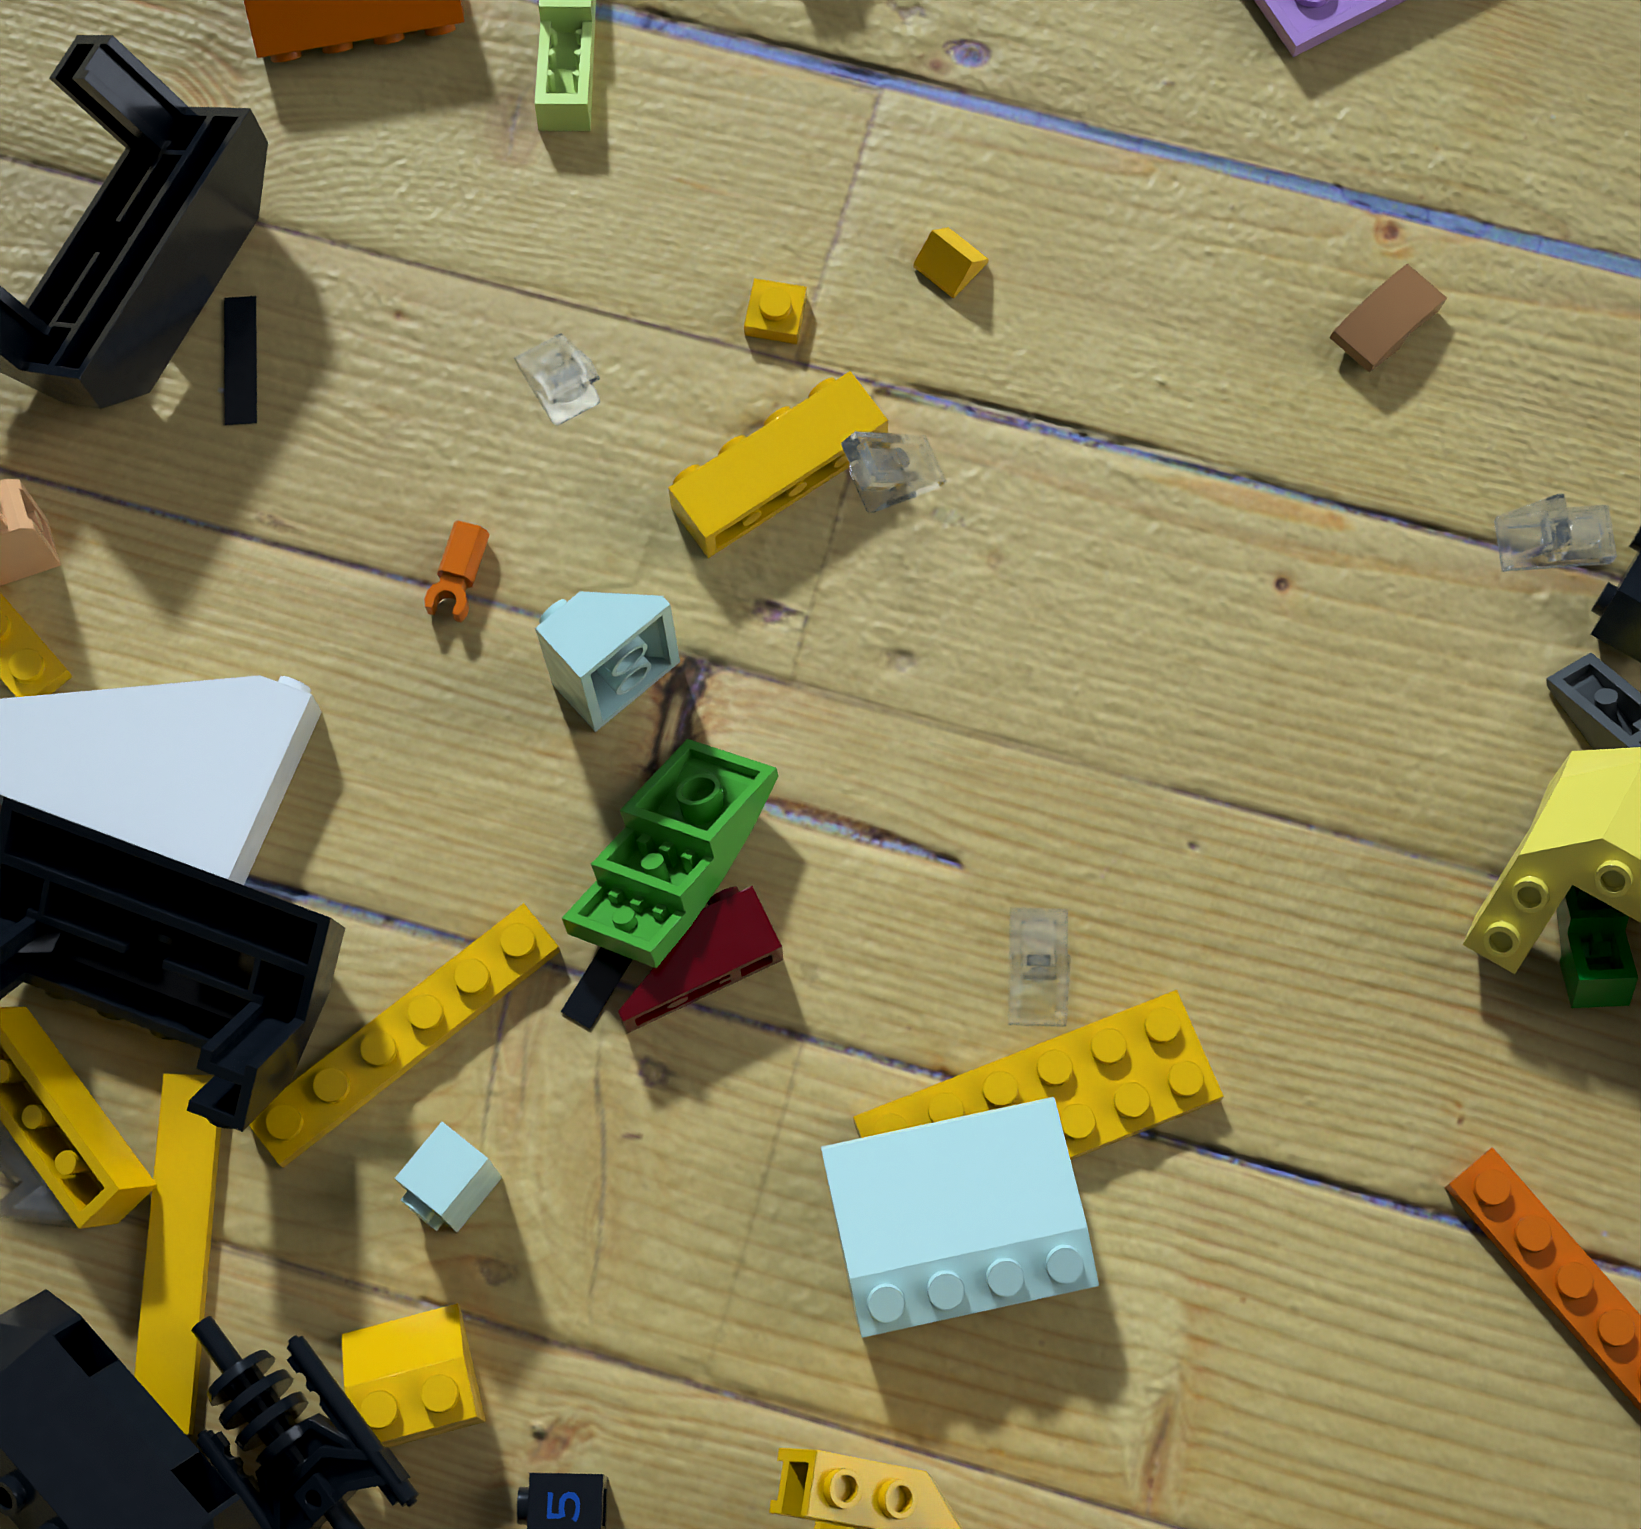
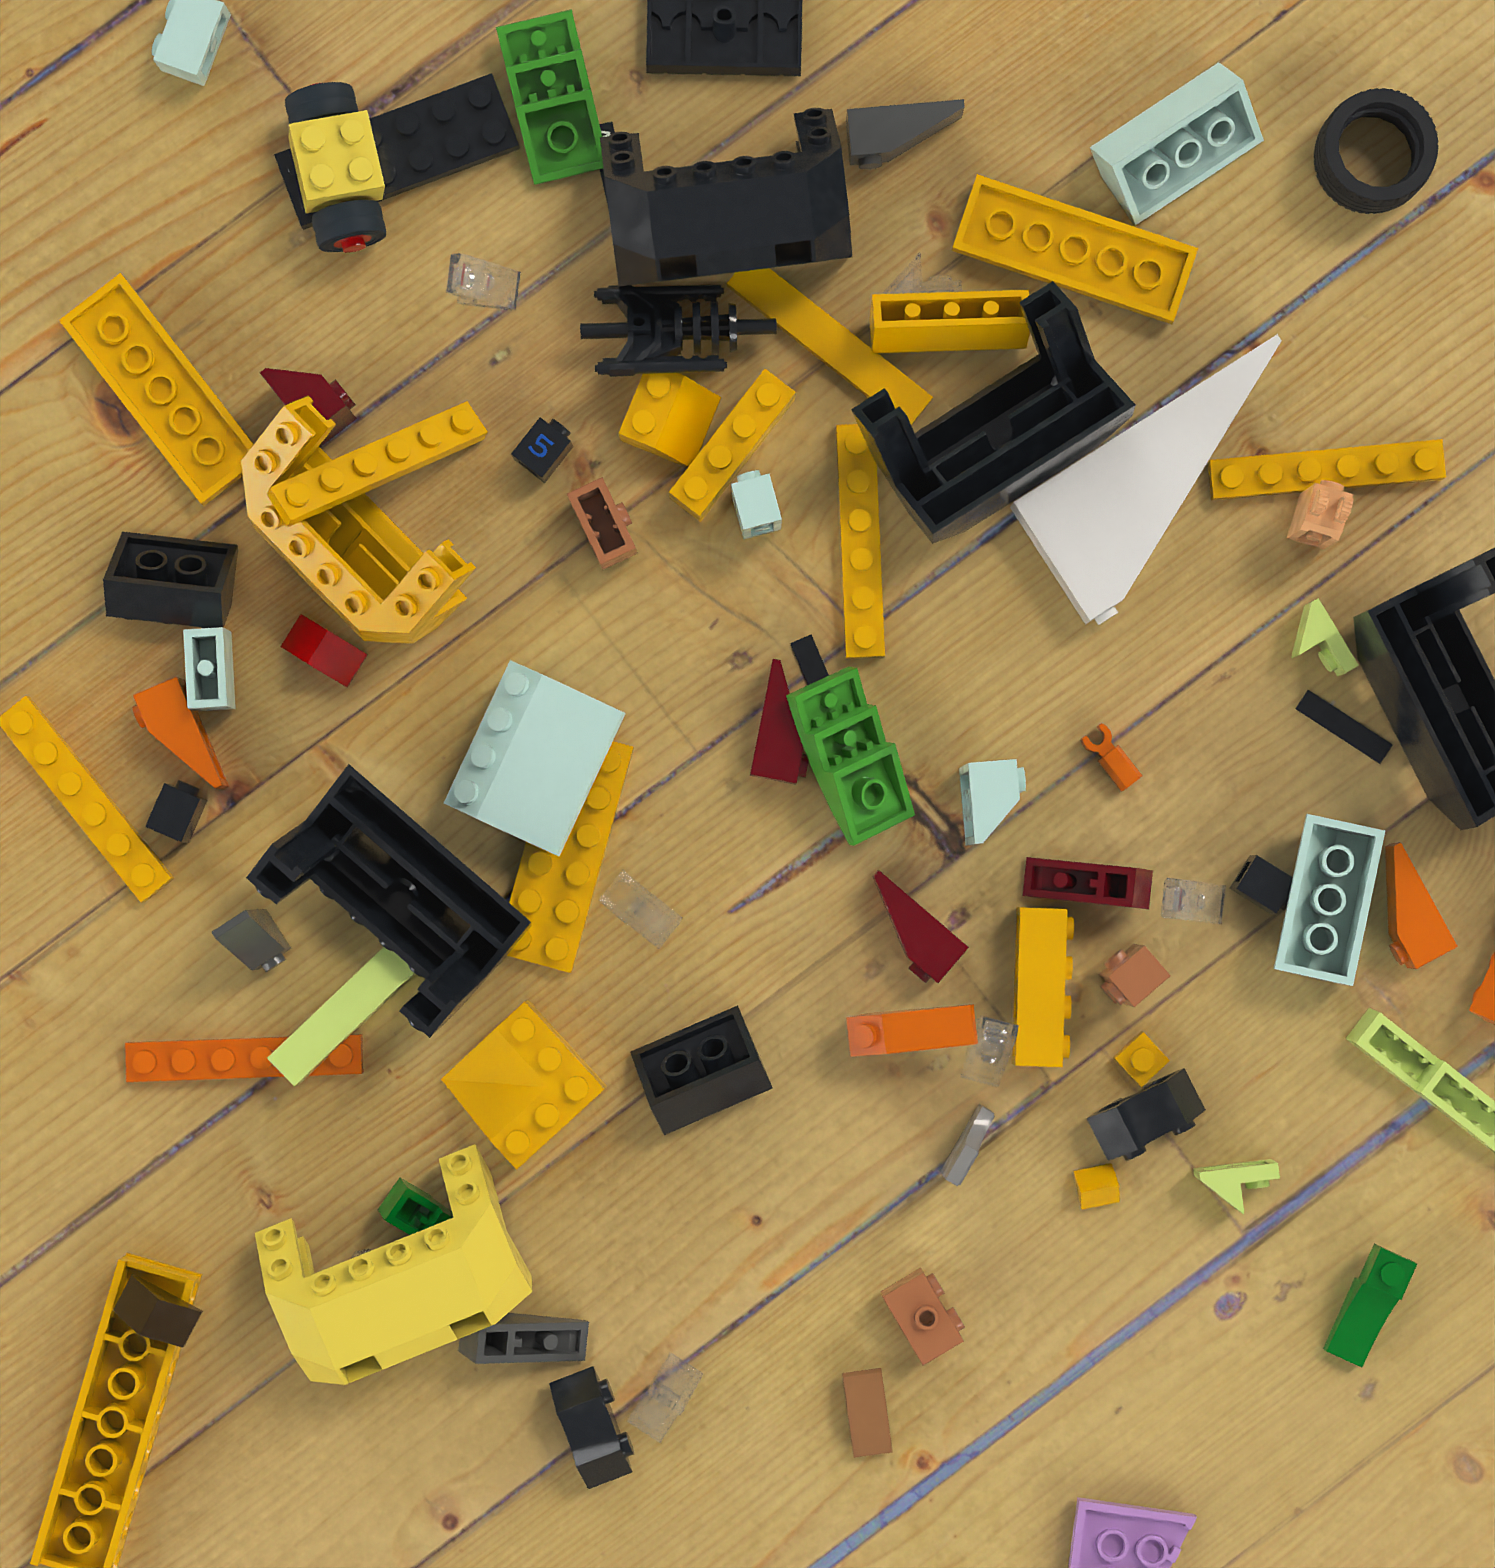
camera: 125 degrees right, 15 degrees up
(146, 450) = (1318, 628): none -> yellowish green slope
(392, 1268) = (732, 445): none -> yellow brick
(400, 148) = (1412, 916): none -> orange slope
(446, 225) = (1329, 900): none -> light aqua slope
(482, 314) = (1263, 884): none -> black brick
(605, 1353) = (603, 523): none -> nougat brick
(622, 495) = (1088, 883): none -> dark red slope
(690, 367) = (1132, 975): none -> nougat brick
(821, 632) = (922, 936): none -> dark red slope
(830, 132) = (1227, 1178): none -> yellowish green slope
(848, 261) = (1140, 1118): none -> black brick
(938, 554) = (911, 1030): none -> orange slope
(1027, 408) = (967, 1146): none -> light grey tile
(1166, 759) = (700, 1070): none -> black slope
(1238, 331) = (922, 1315): none -> nougat brick
(1244, 1247) = (401, 890): none -> black wedge
(1348, 945) = (523, 1084): none -> yellow slope
(1392, 1214) = (340, 1016): none -> yellowish green slope
(1447, 1396) = (253, 939): none -> dark grey slope

